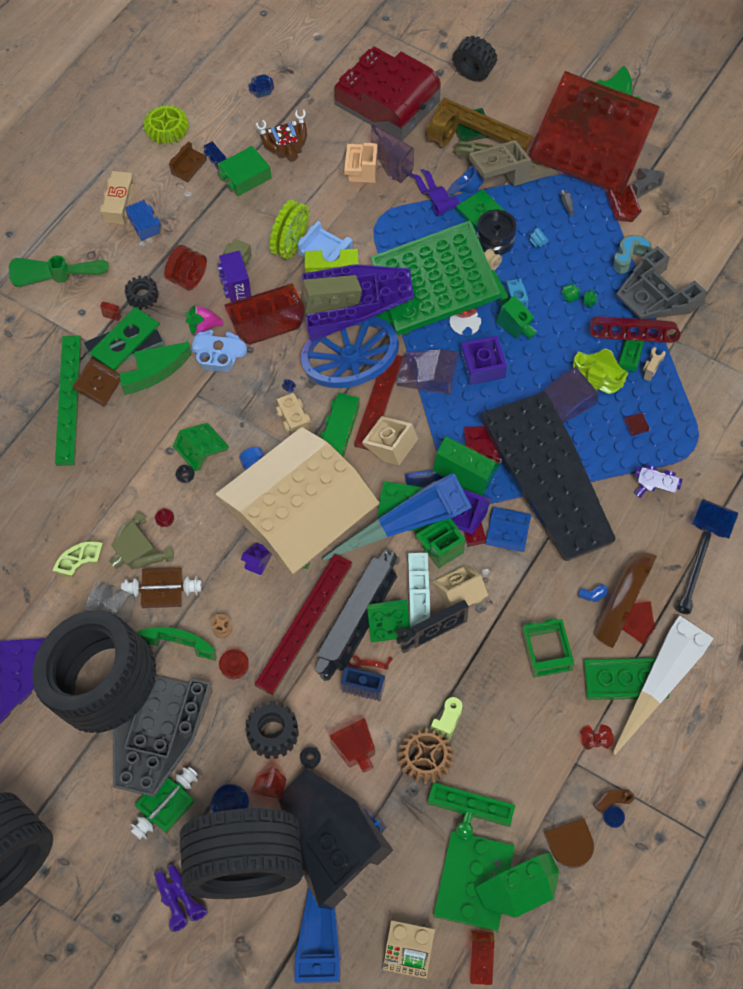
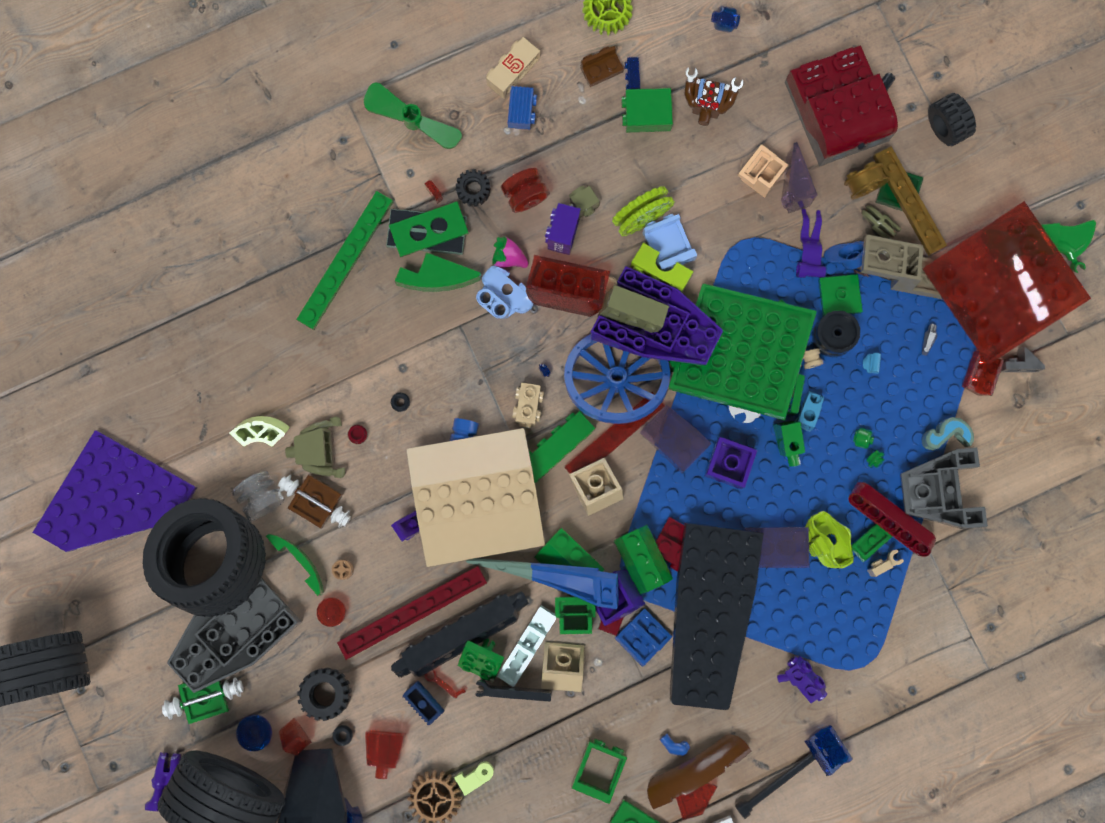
camera: 30 degrees right, 20 degrees up
(97, 382) = (378, 260): reddish brown tile -> none
(197, 443) = (430, 381): green bracket -> none
(422, 478) = (600, 542): clear blue tile -> none
(636, 424) = (826, 613): clear red tile -> none

